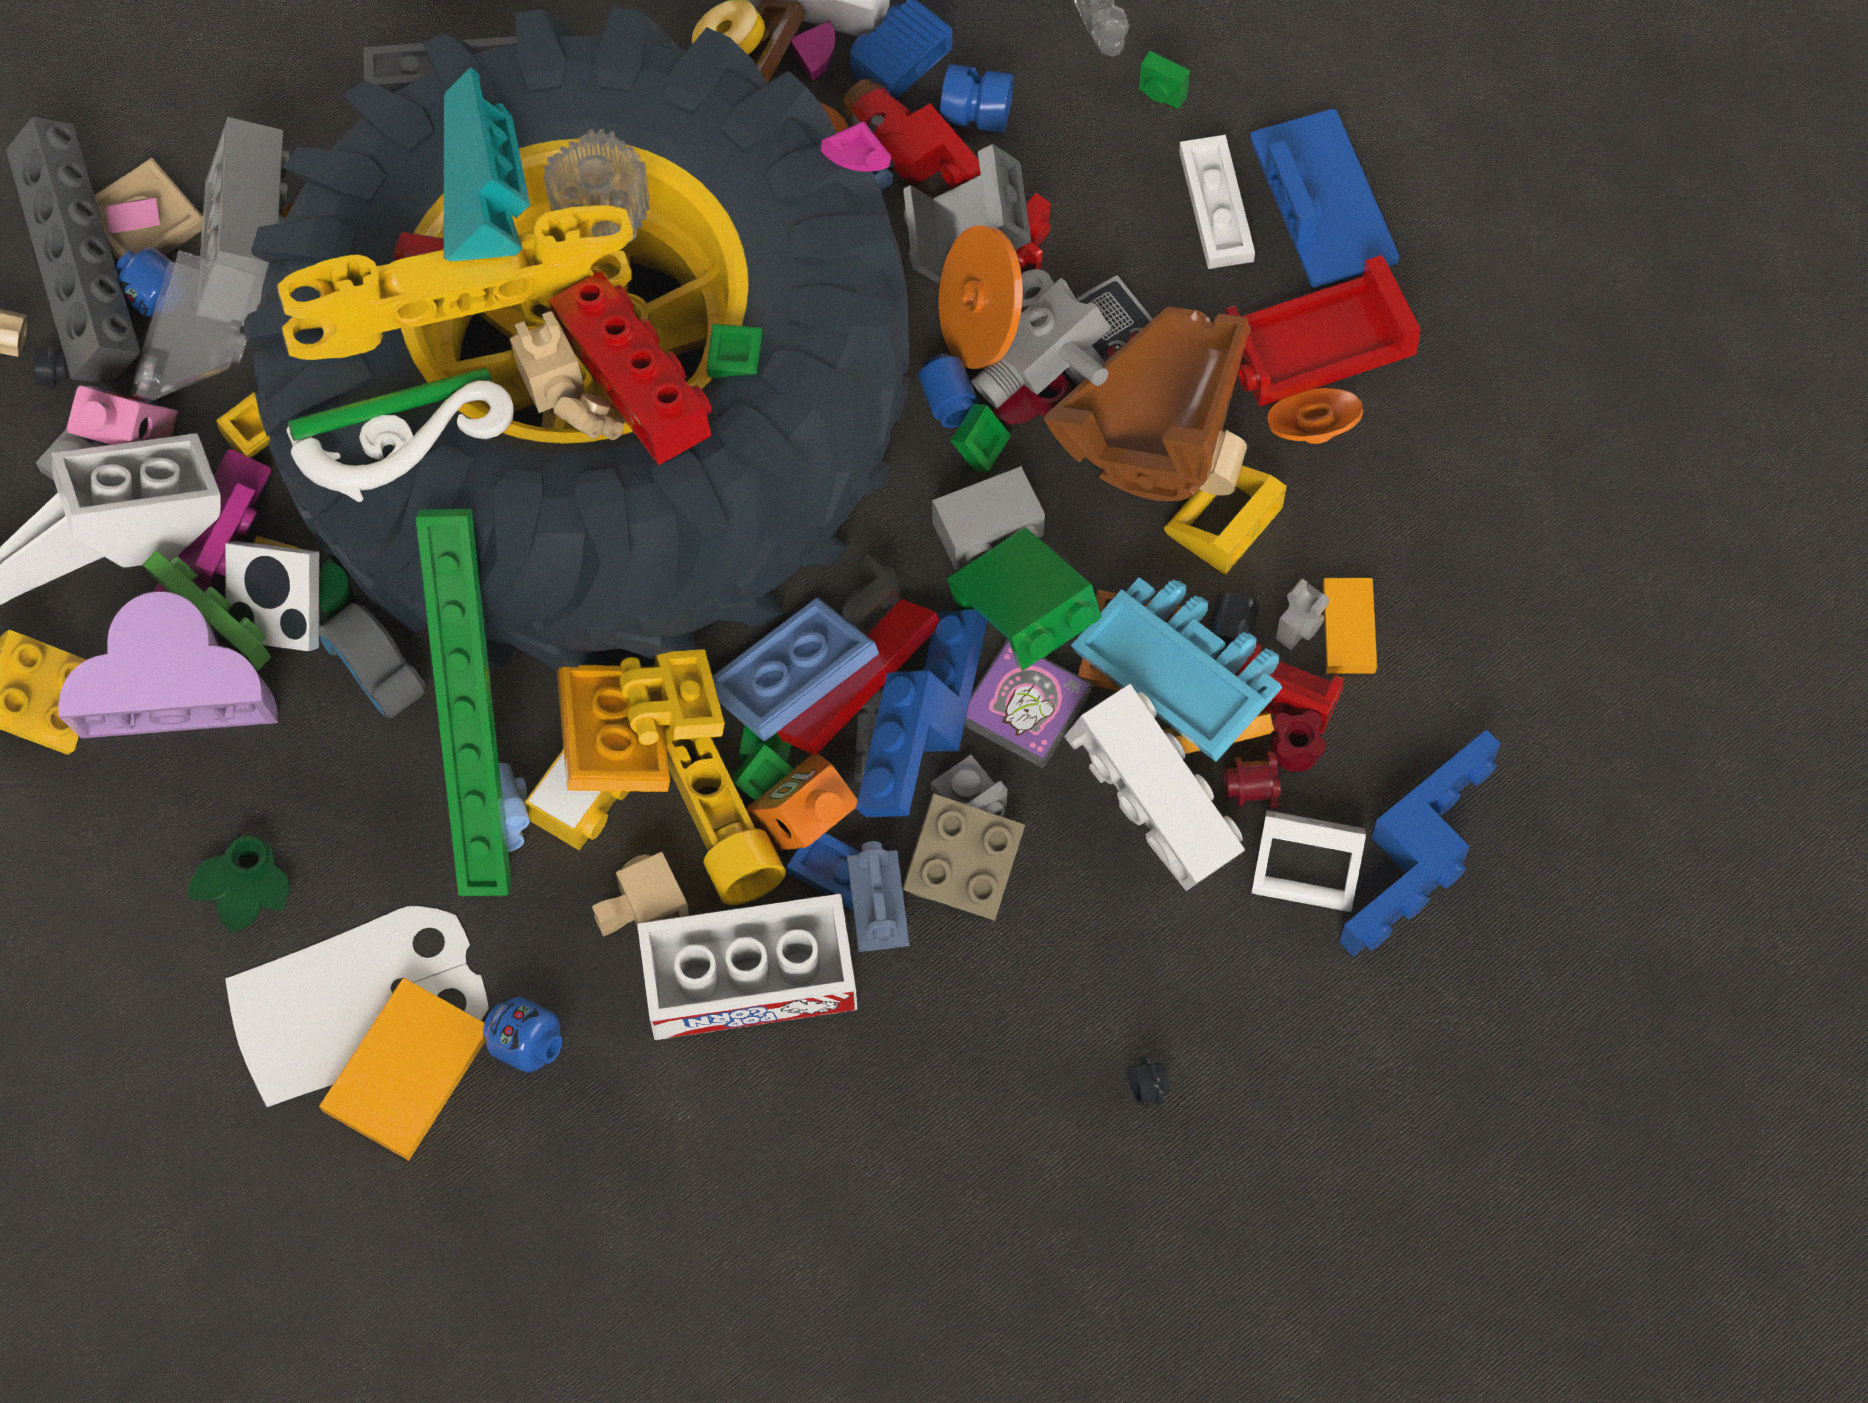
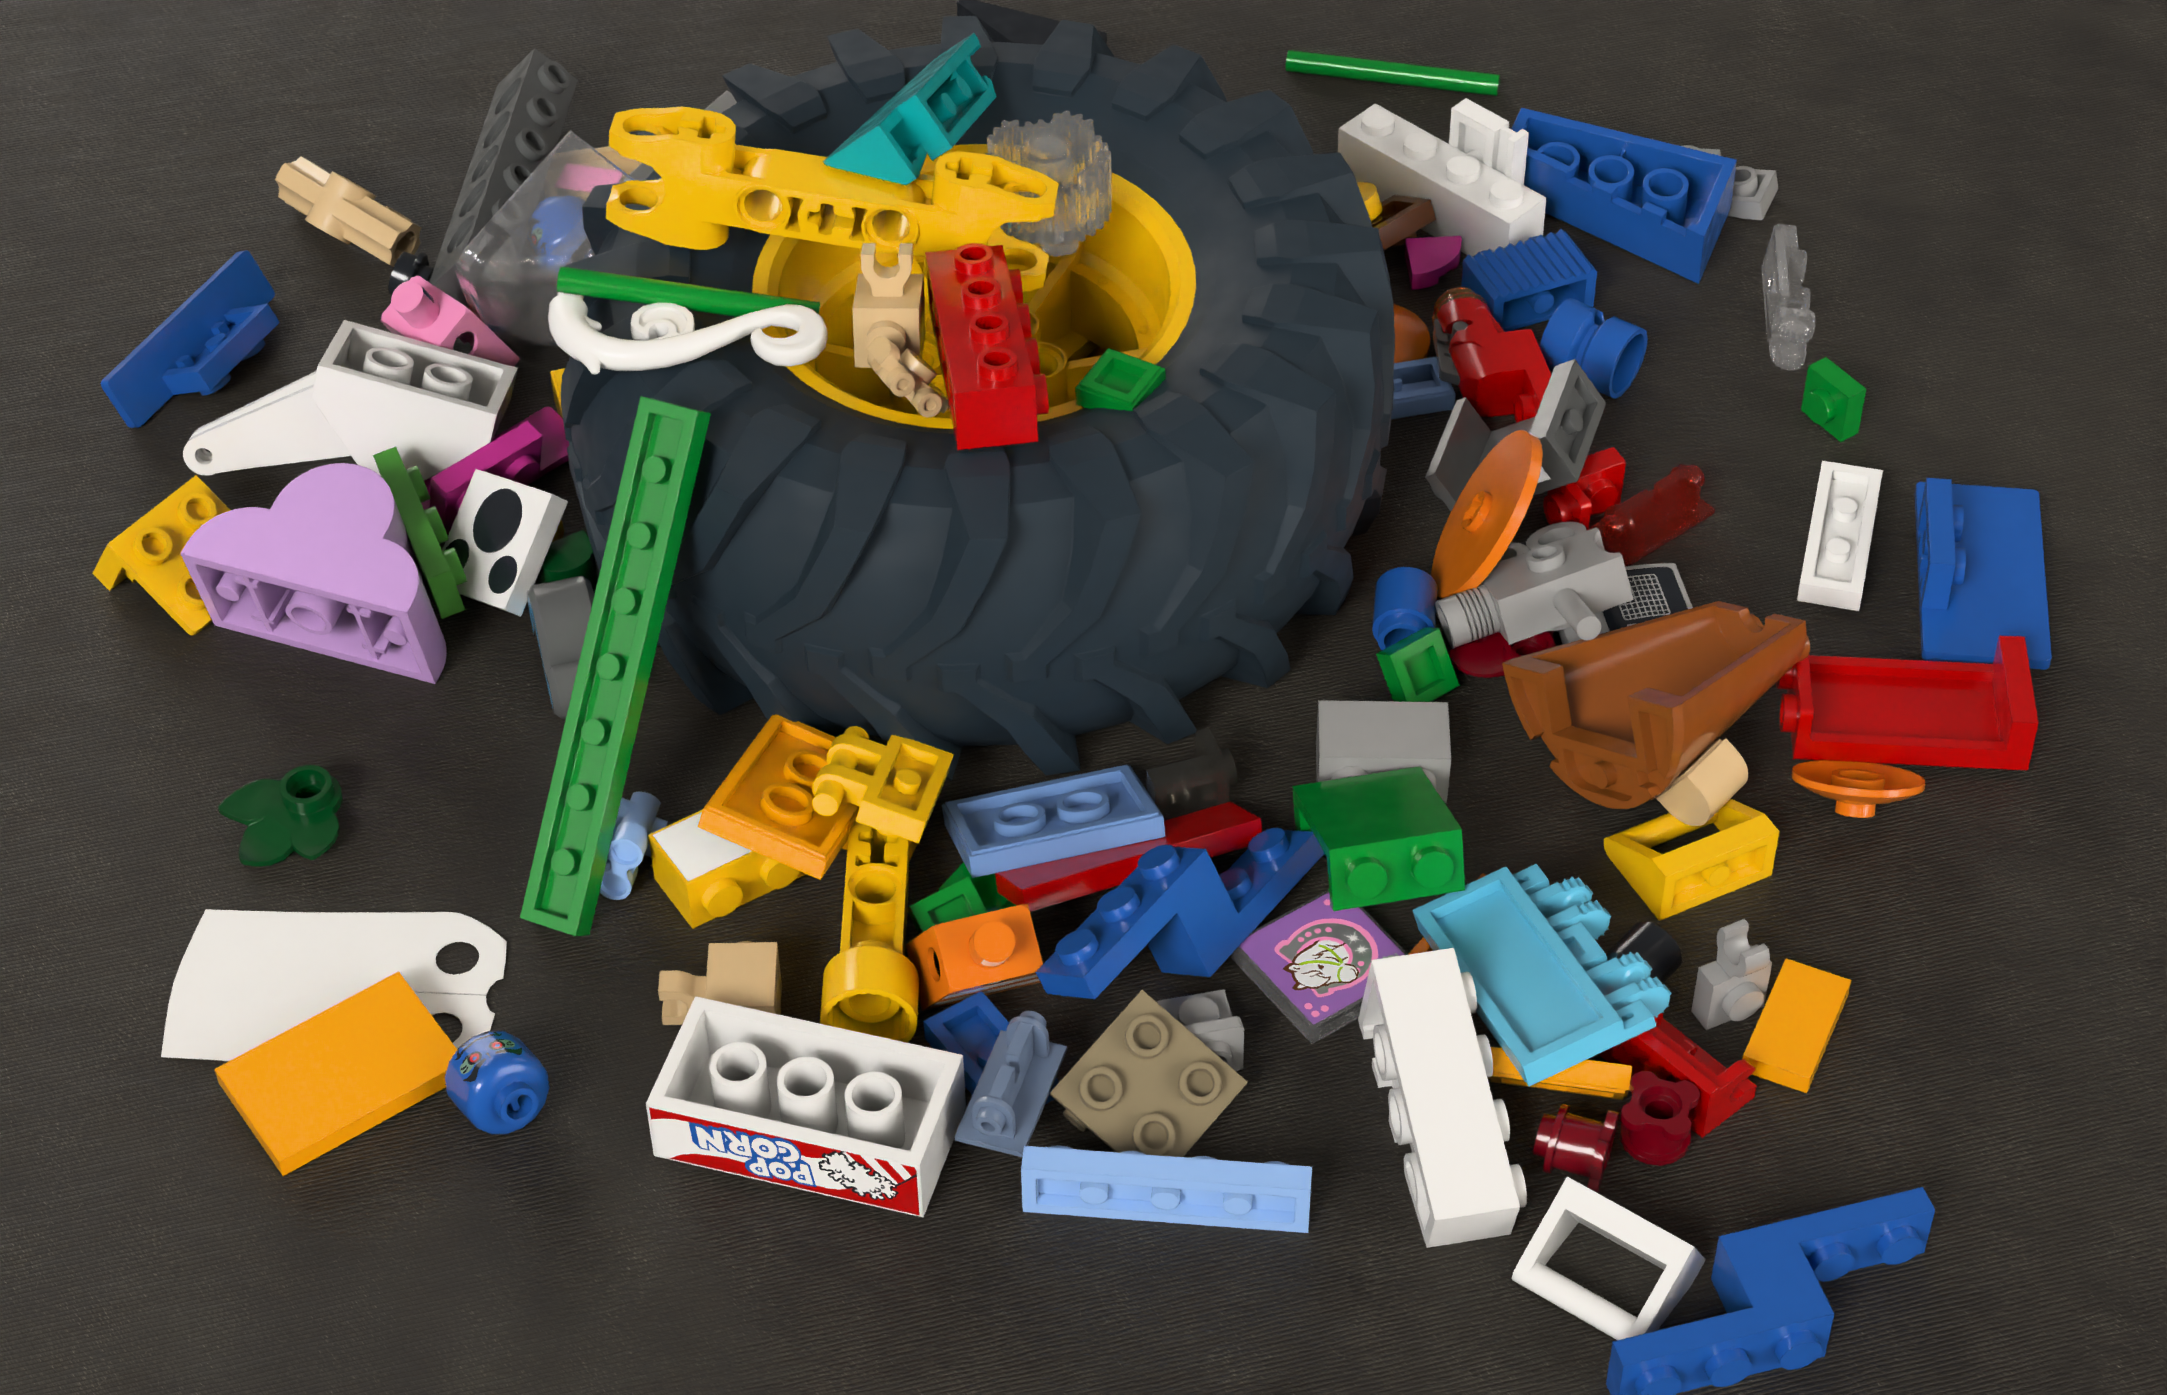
camera: 25 degrees right, 20 degrees down
(856, 149) = (1374, 237): dark pink tile -> none
(990, 930) = (1166, 1188): none -> light blue plate
(1080, 235) = (1655, 515): none -> clear red hinge

